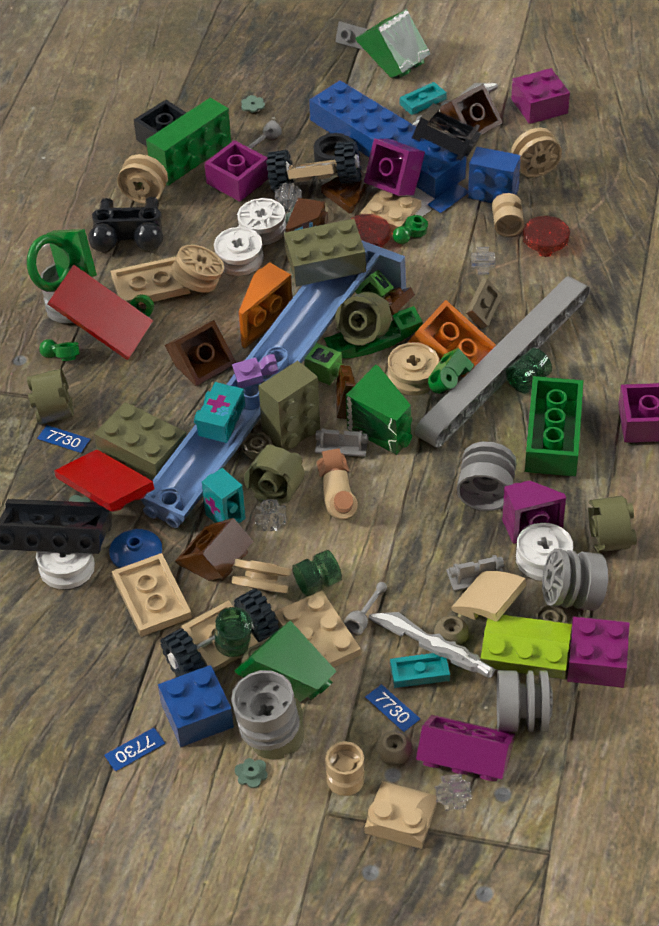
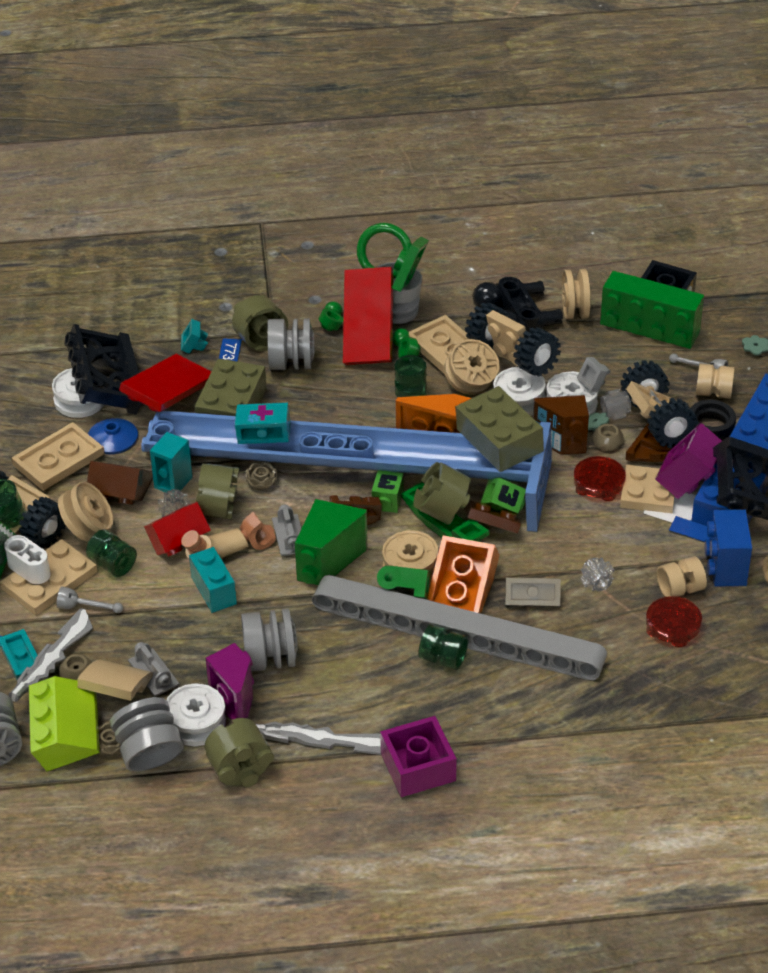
camera: 70 degrees right, 5 degrees down
(31, 456) = (193, 337): none -> teal tile
(99, 380) = (290, 344): none -> light grey wheel
(186, 311) = (410, 376): none -> clear green wheel
(198, 223) = (529, 351): none -> plate
(201, 353) = (364, 402): reddish brown slope -> none
(236, 170) = (628, 347): magenta brick -> none
(252, 372) = (327, 429): medium lavender plate -> none
(262, 192) = (593, 374): none -> light grey tile
(290, 406) = (294, 469): olive brick -> none
(291, 133) = (715, 381): none -> tan wheel
(309, 515) = (168, 531): none -> red brick
(317, 627) = (27, 559): none -> white beam
(384, 505) = (212, 579): none -> teal brick
(414, 226) = (610, 504): green plate -> none
(554, 426) = (366, 682): green brick -> none
(592, 477) = (320, 737): none -> light grey sword
(598, 652) = (73, 781): magenta brick -> none

